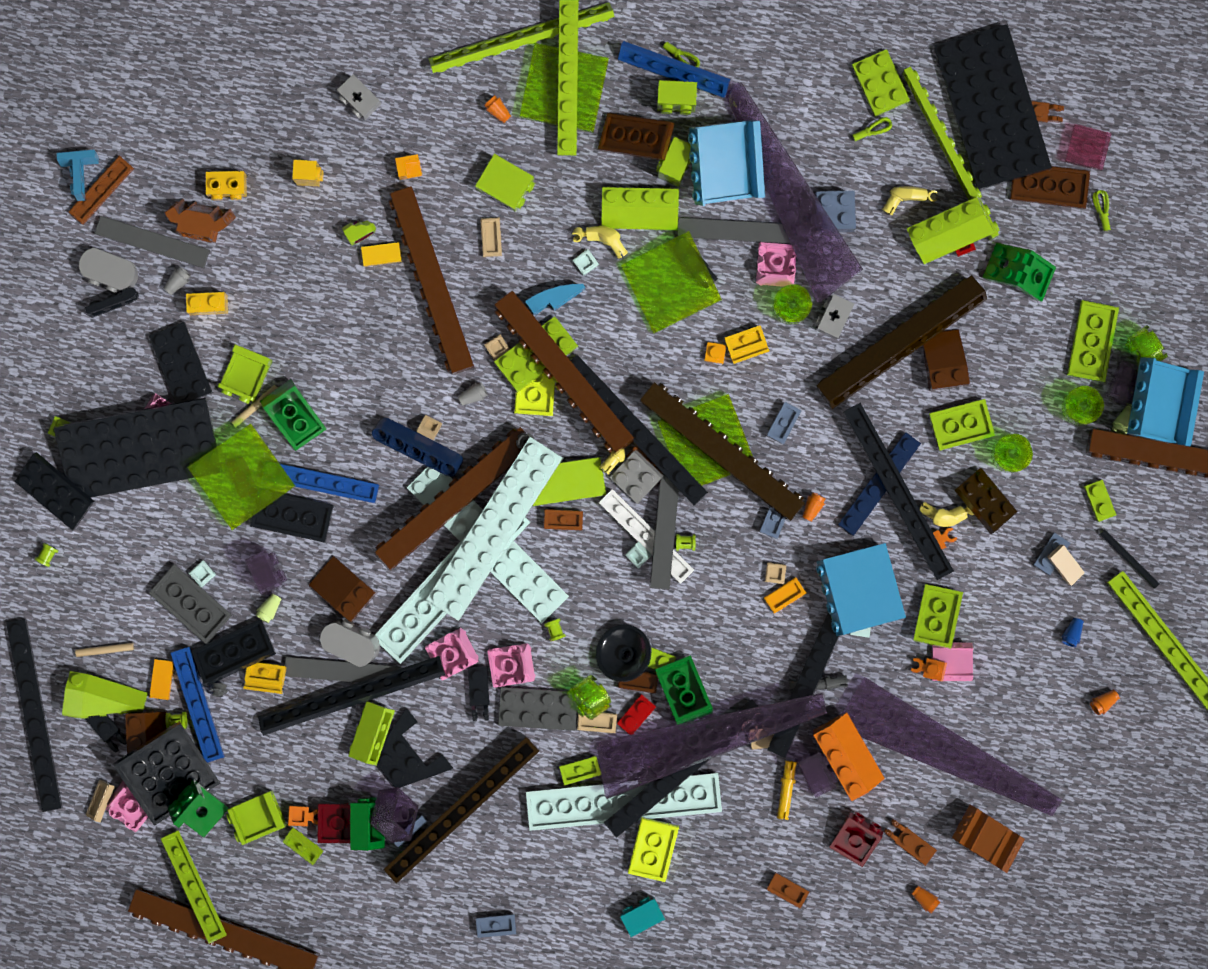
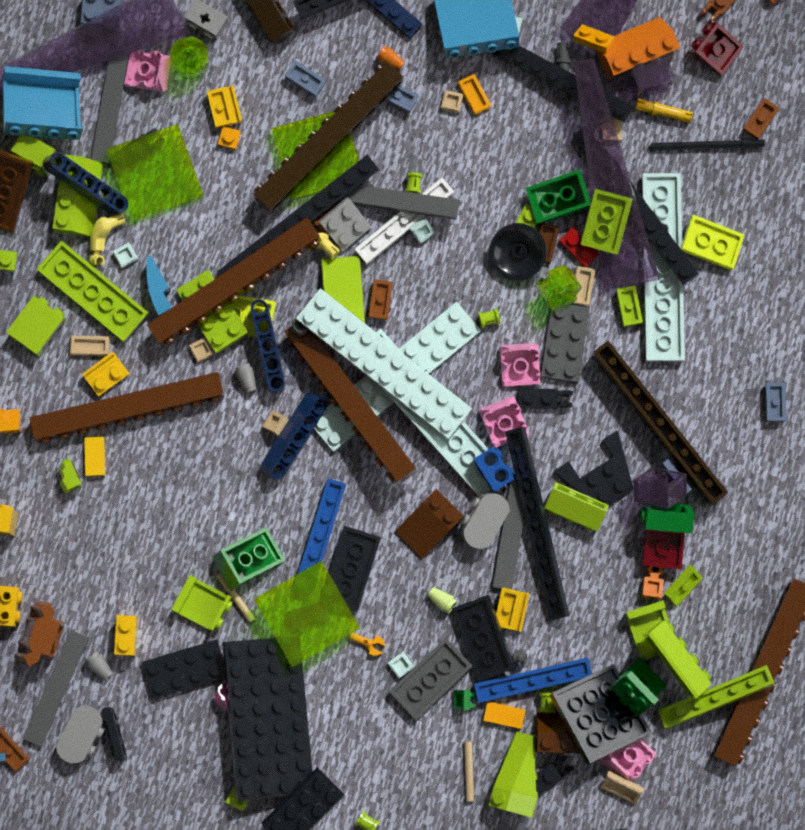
camera: 90 degrees left, 5 degrees down
(172, 636) = (462, 699): none -> green tile
(221, 540) = (368, 643): none -> light orange bar
(224, 845) = (677, 659): none -> lime slope
(266, 572) = (406, 596): clear purple brick -> none
(397, 643) = (488, 472): none -> blue brick
(464, 255) = (105, 373): none -> yellow plate
(514, 412) = (262, 337): none -> dark blue beam
(545, 234) = (92, 291): none -> lime plate
(642, 916) = (776, 259): teal brick -> none
(652, 206) = (77, 183): none -> dark blue beam
(660, 739) = (606, 221): none -> lime plate
(760, 875) = (744, 143): none -> black bar
(851, 712) = (594, 38): none -> light orange plate

